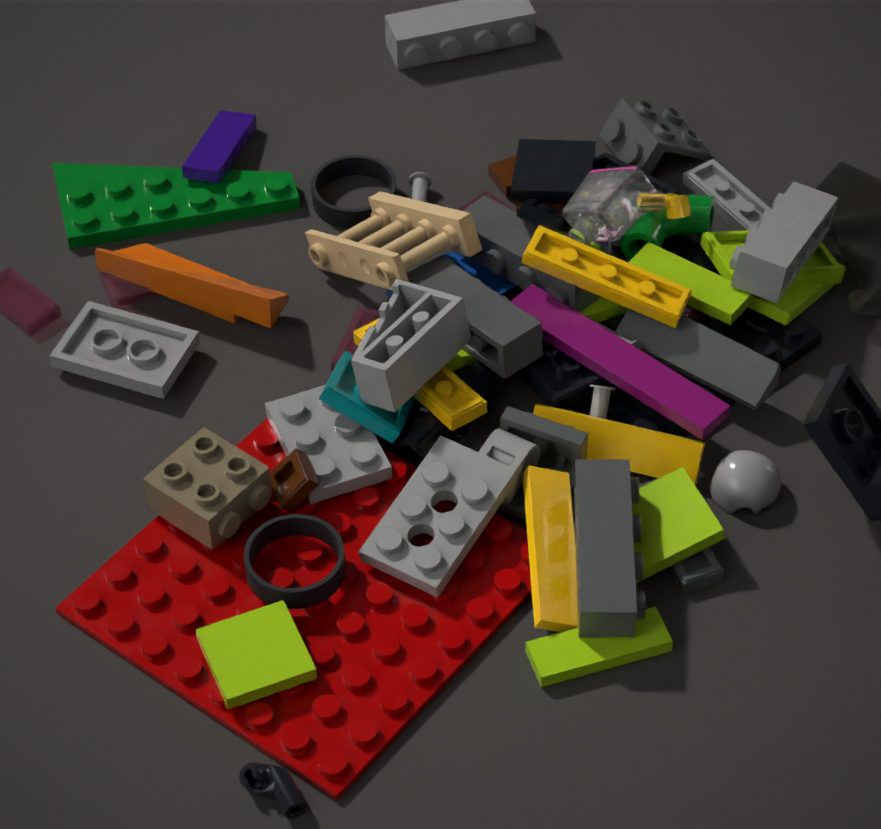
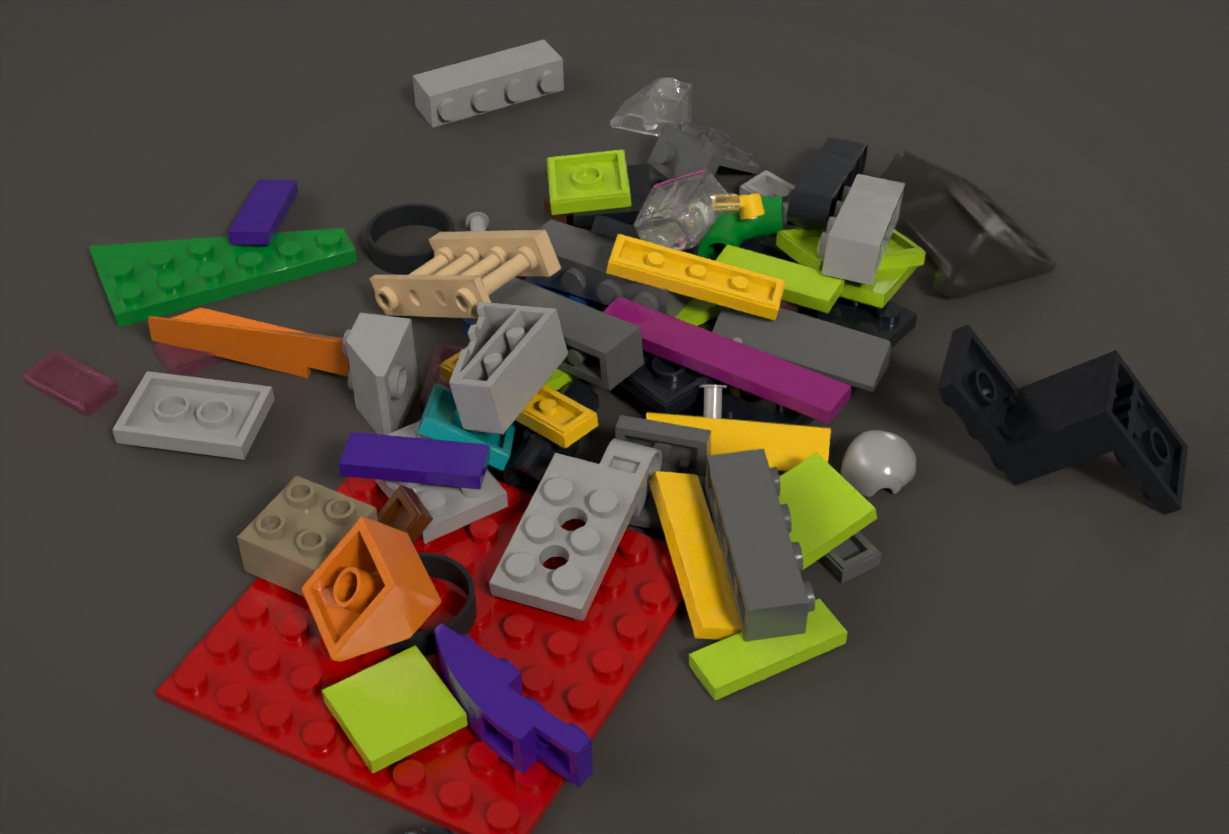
camera: 10 degrees left, 5 degrees down
(250, 546) = (370, 591): none -> orange slope
(300, 329) = (382, 369): none -> light grey slope
(313, 425) = (415, 460): none -> dark purple tile
(348, 676) = (505, 719): none -> dark purple slope
(531, 155) = (588, 182): none -> lime tile
(619, 75) = (654, 105): none -> clear slope
(772, 172) = (824, 181): none -> black beam

